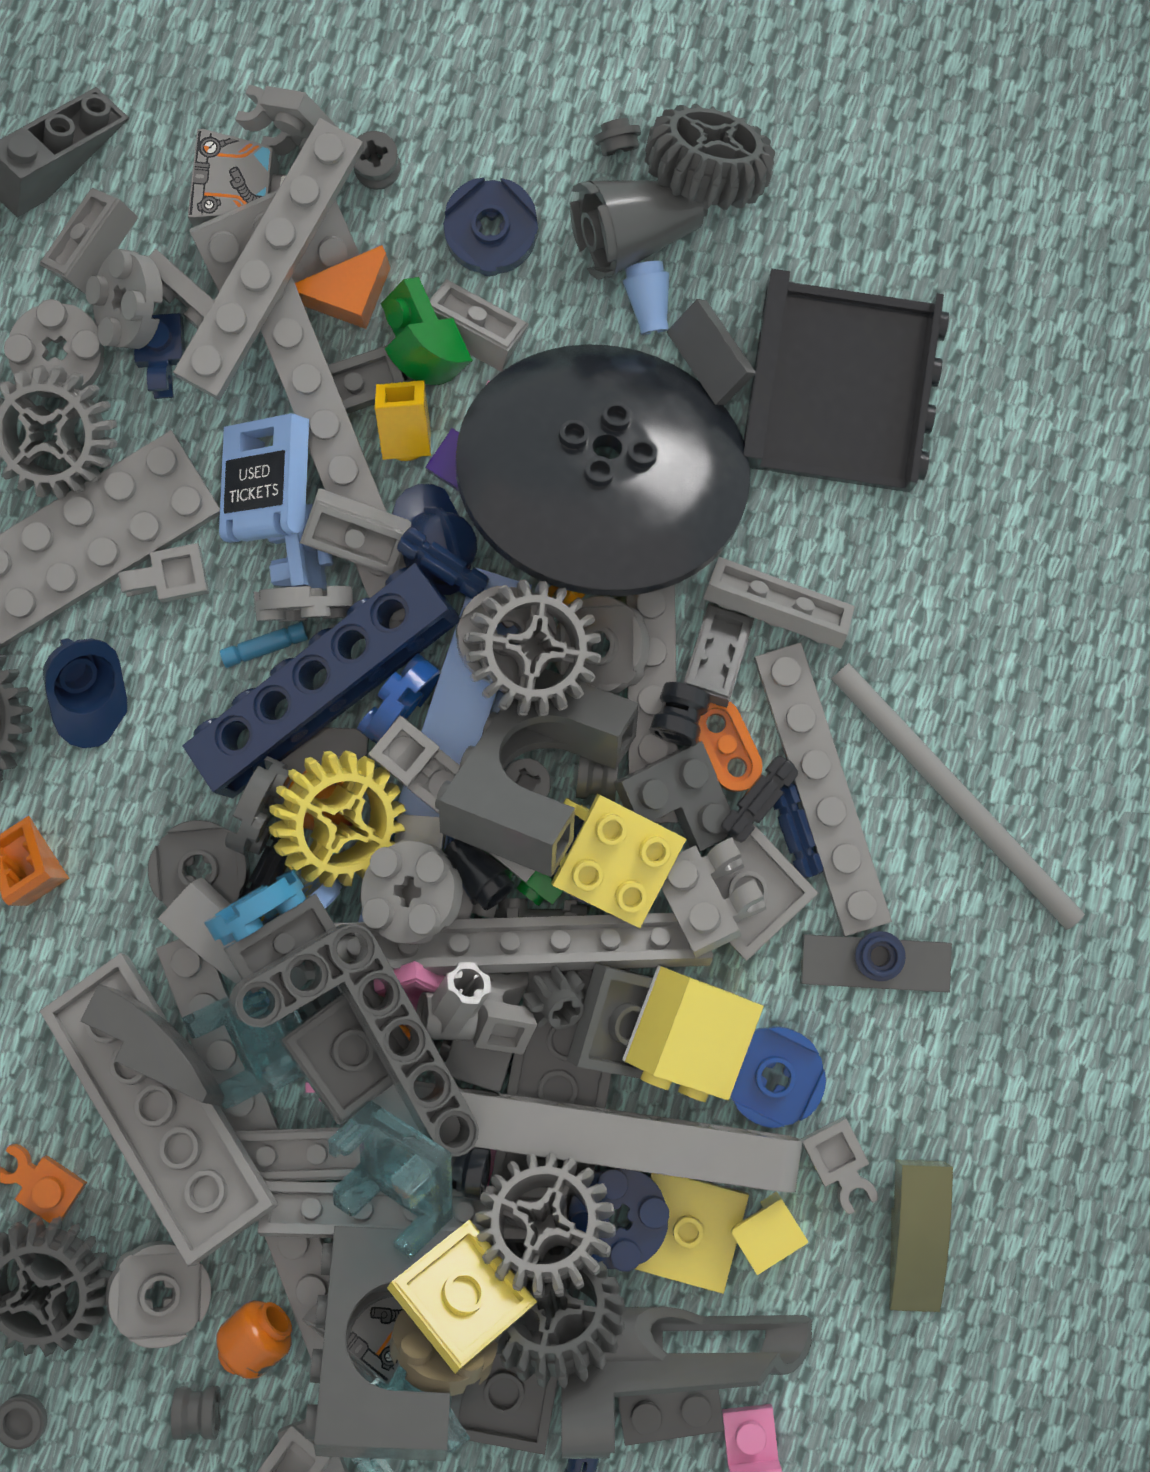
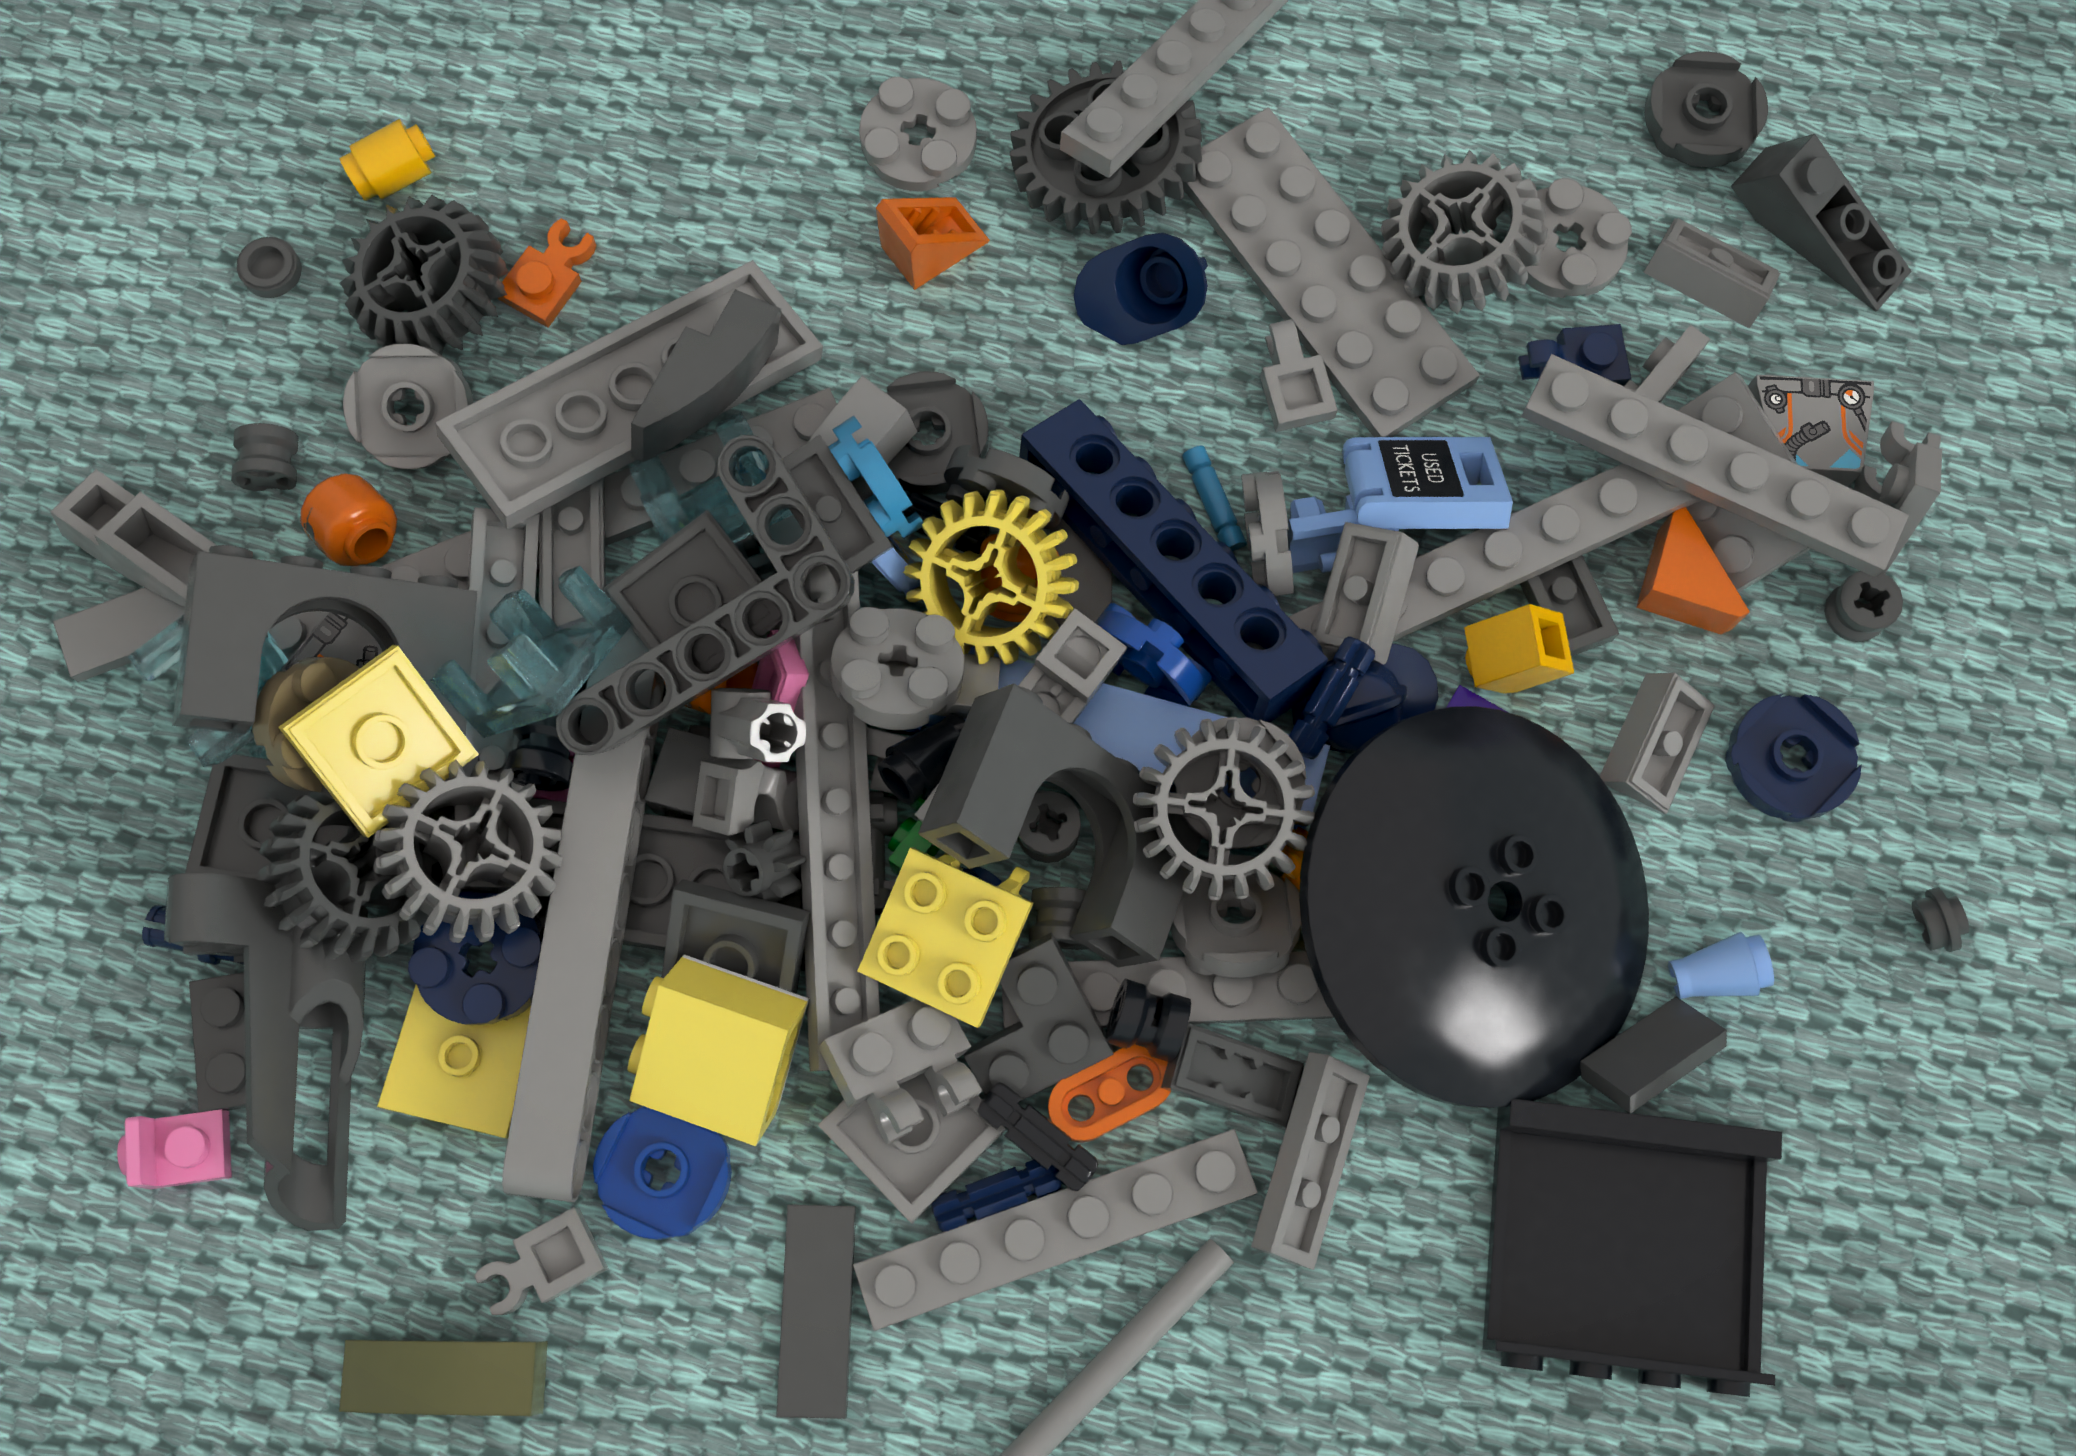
camera: 85 degrees right, 10 degrees down
(125, 299) = (1643, 305): light grey plate -> none
(422, 343) = (1620, 671): green brick -> none
(629, 221) = (1828, 945): dark grey cone -> none
(709, 156) = (1930, 1040): dark grey gear -> none
(769, 1234) = (451, 1164): light yellow panel -> none
(895, 960) = (802, 1311): dark blue plate -> none

